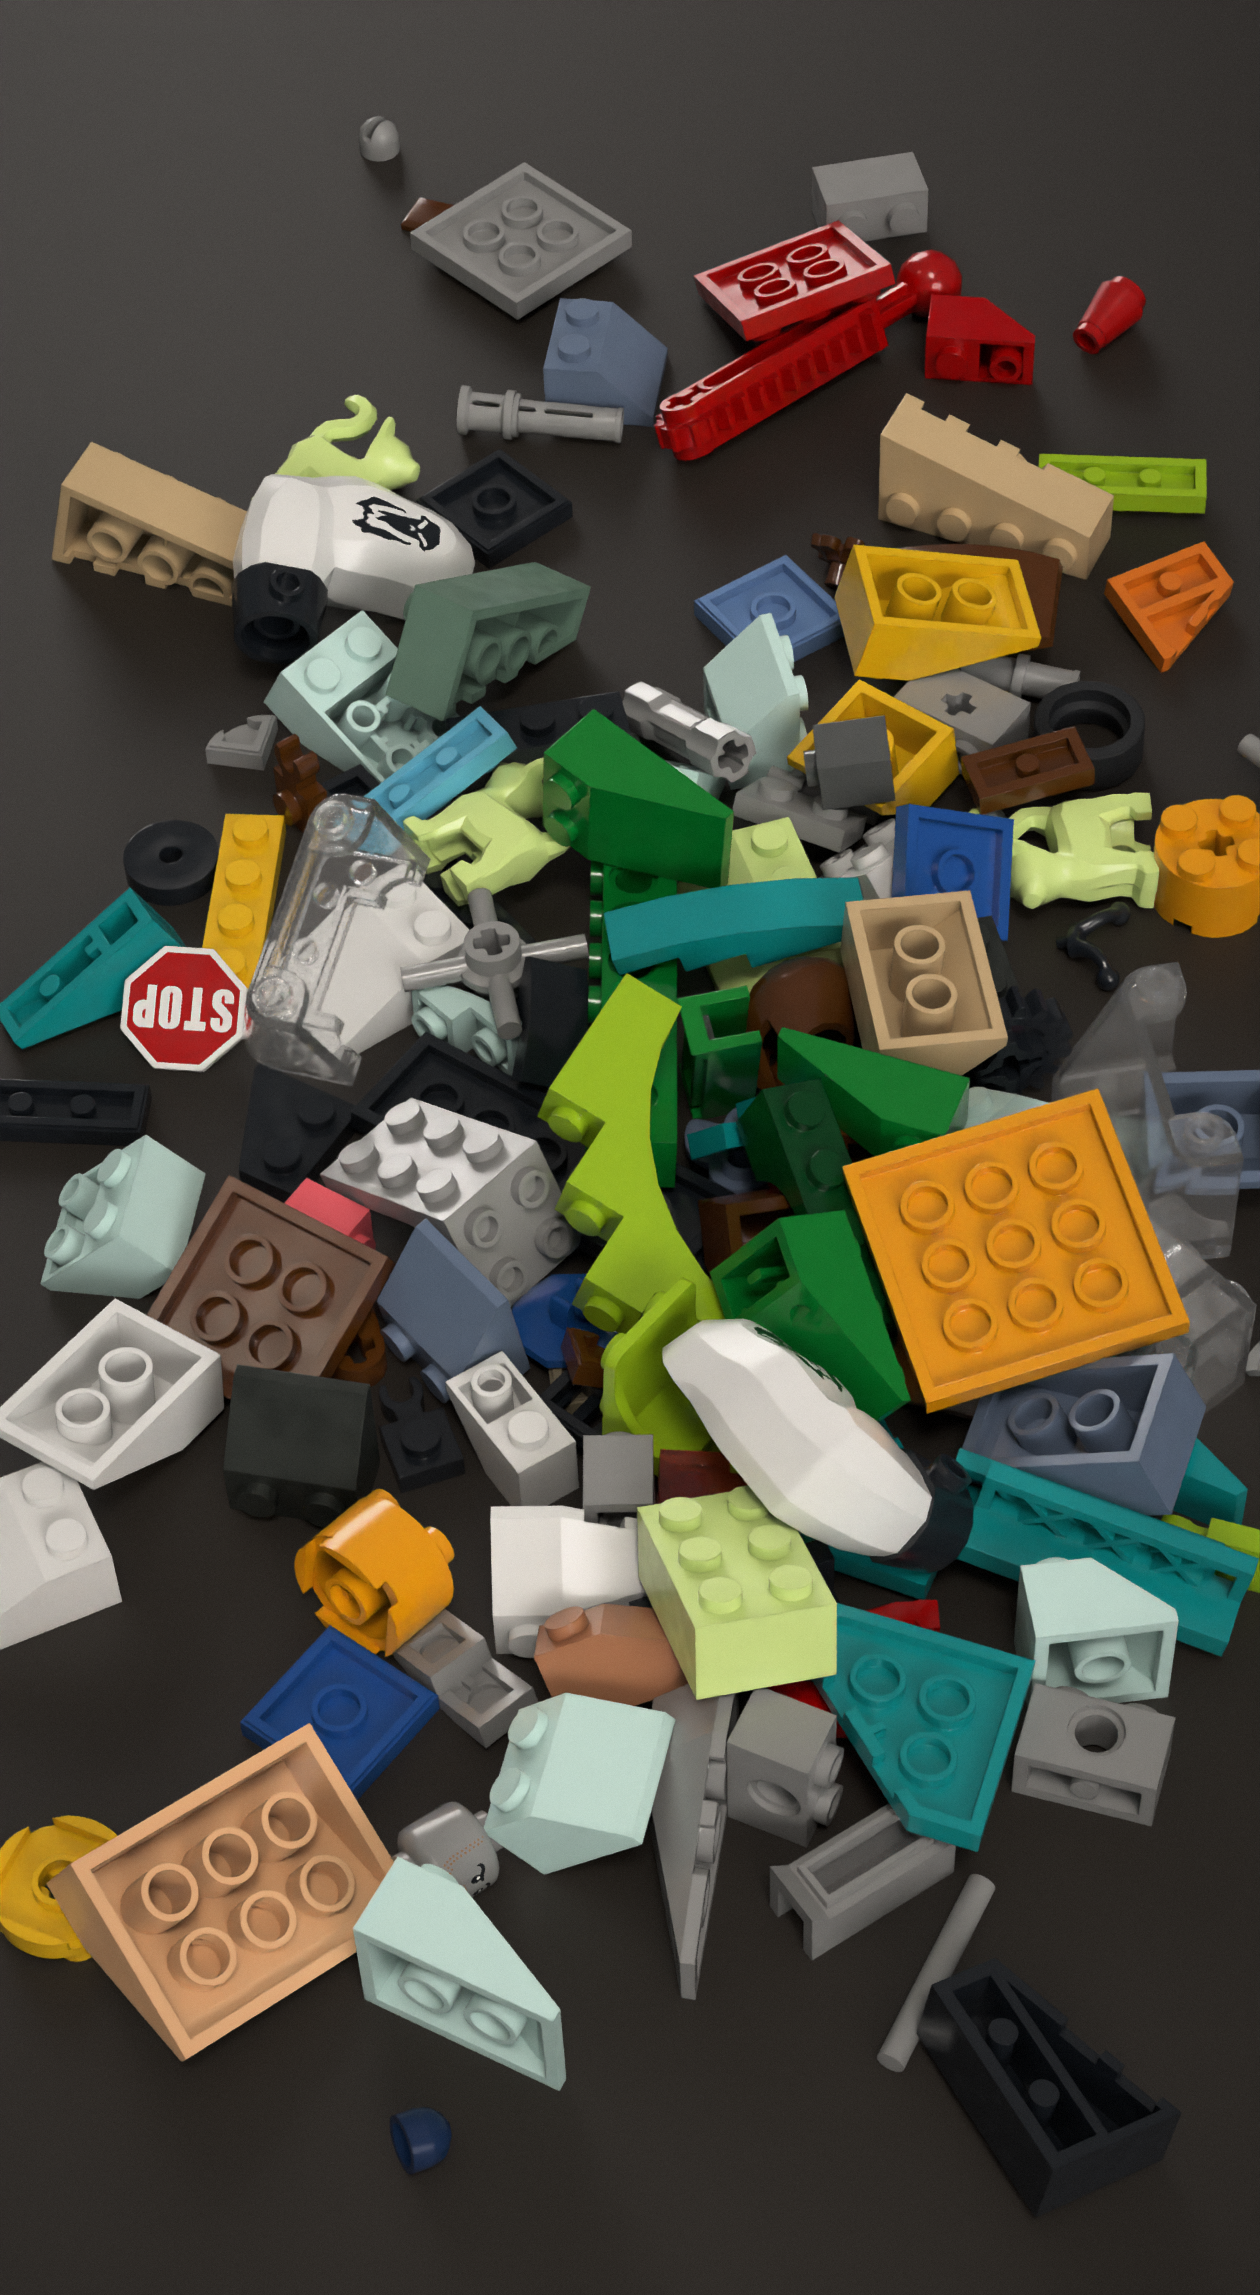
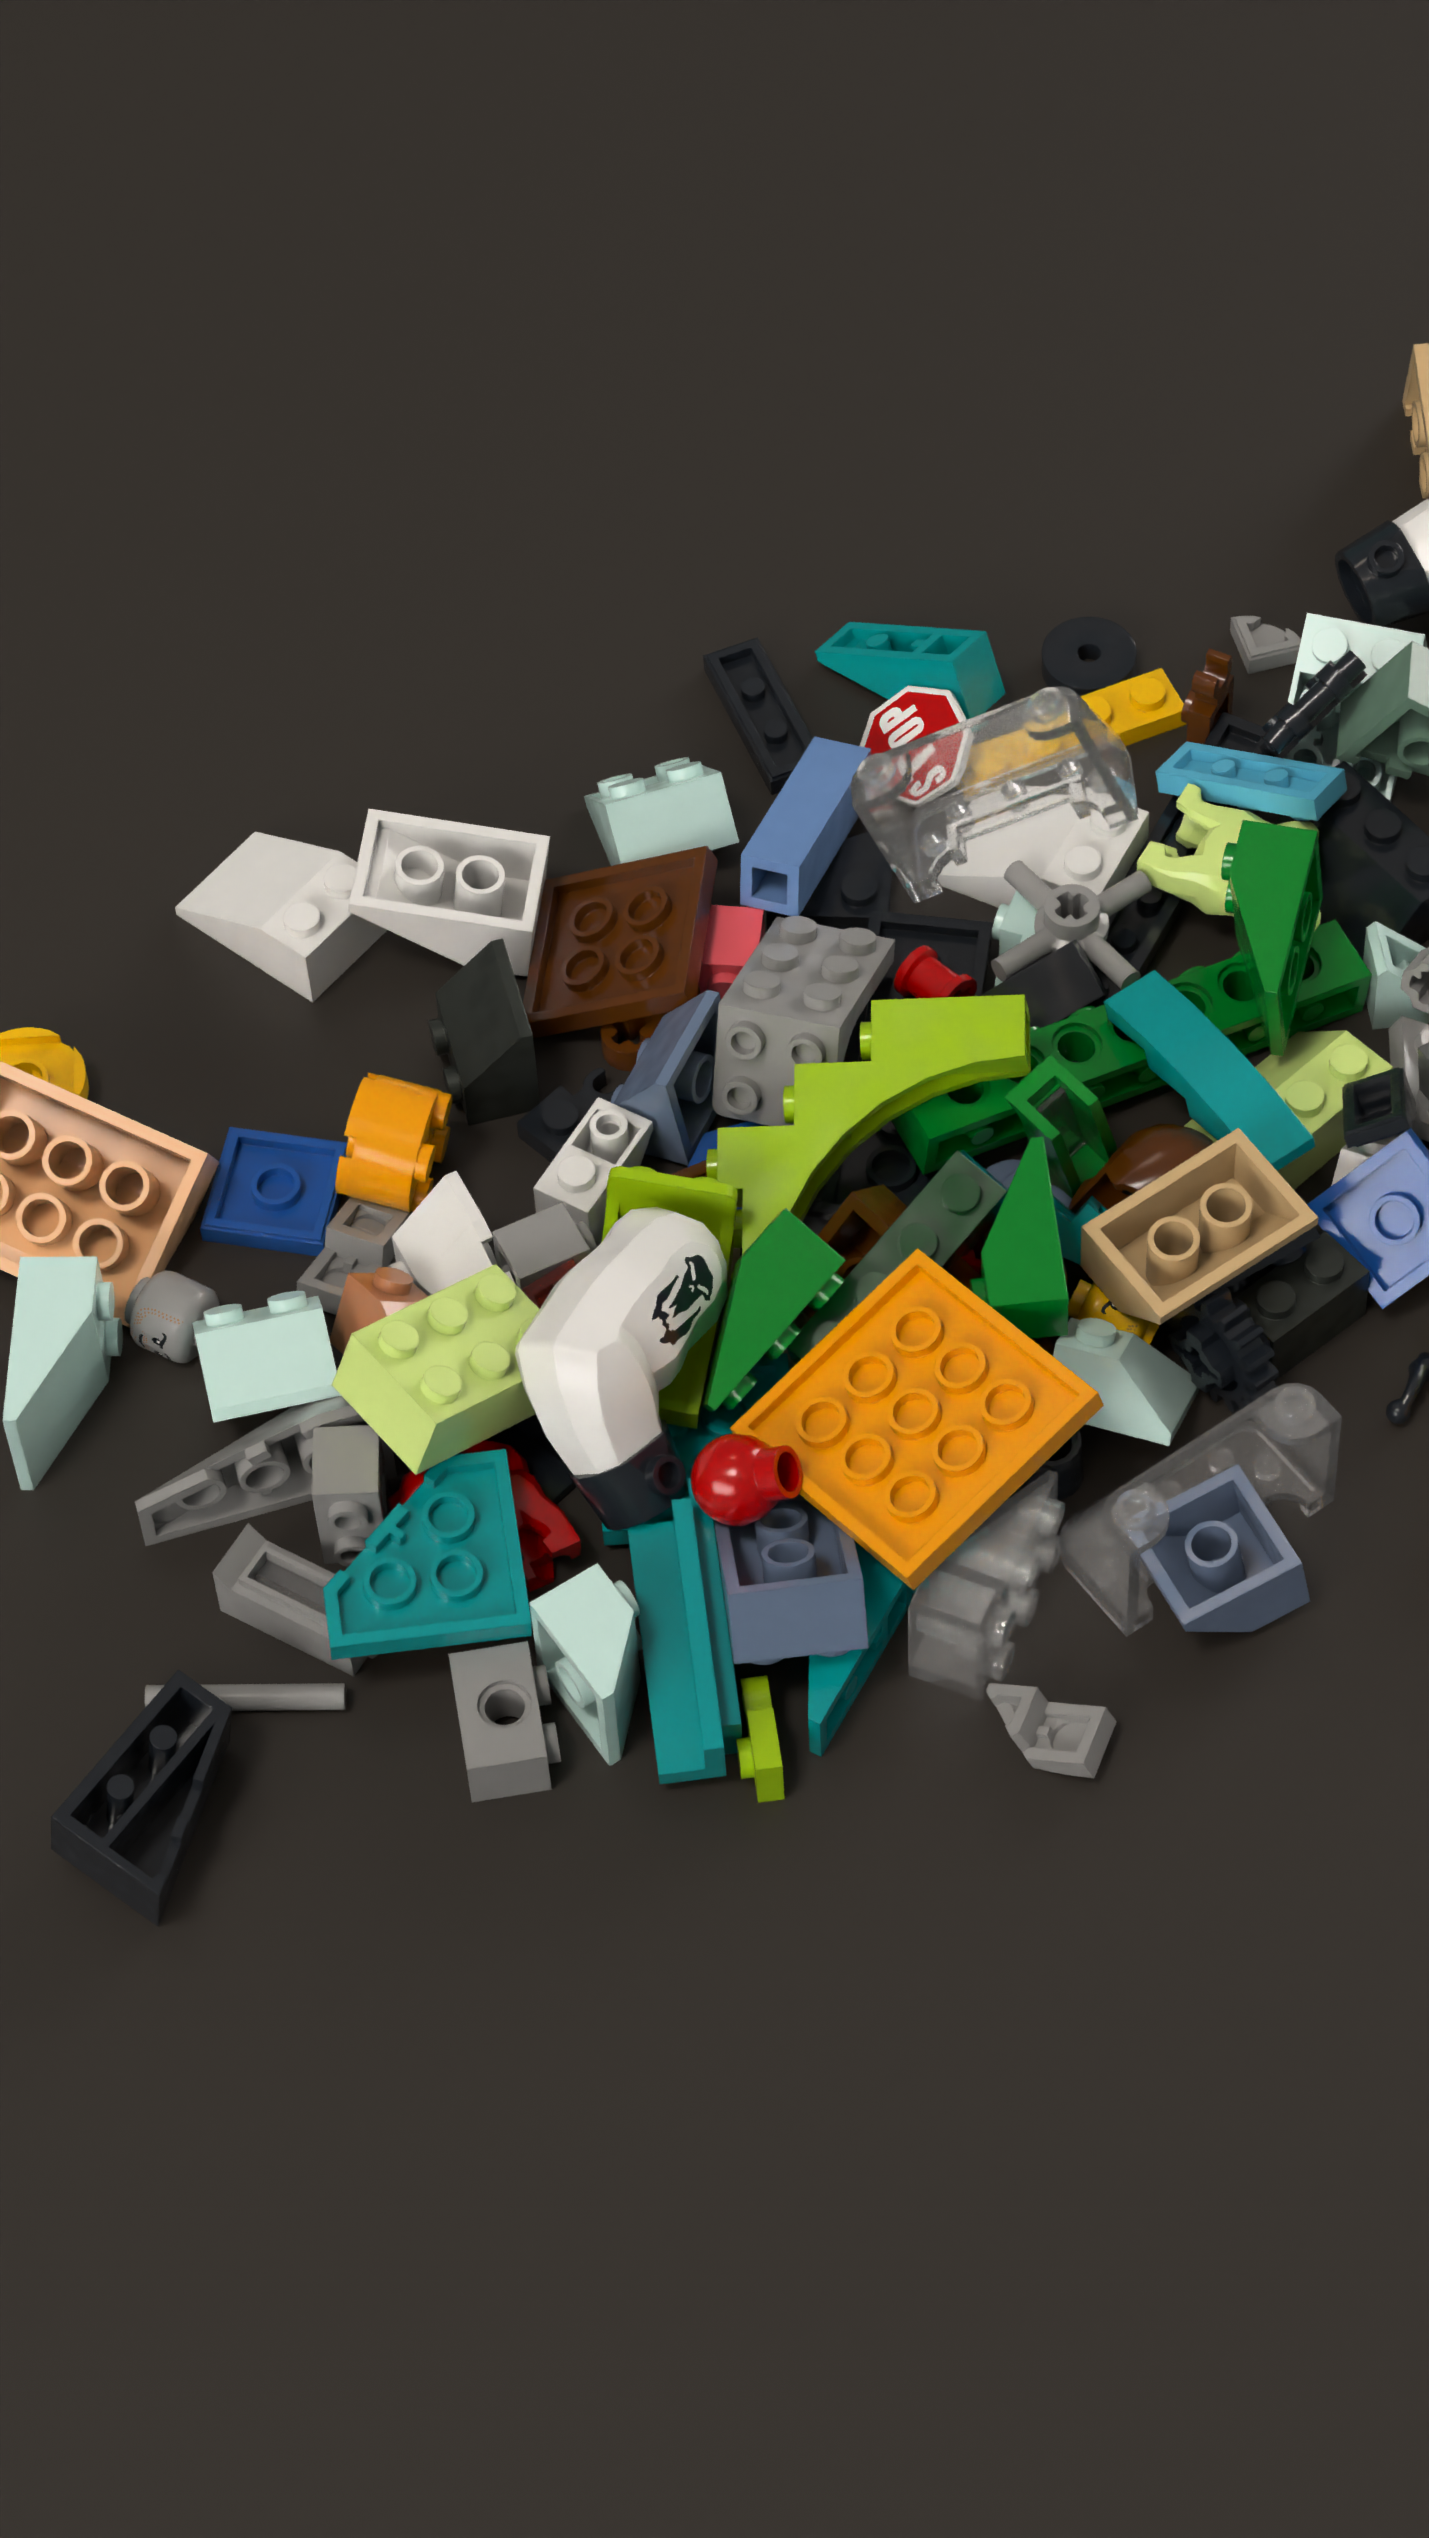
camera: 65 degrees right, 5 degrees up
(236, 1111) = (802, 829): none -> medium blue brick
(389, 706) = (1323, 694): none -> black plate
(485, 1086) = (926, 977): none -> red bush
(855, 827) = (1377, 1107): none -> black slope
(997, 1410) = (744, 1478): none -> red piece

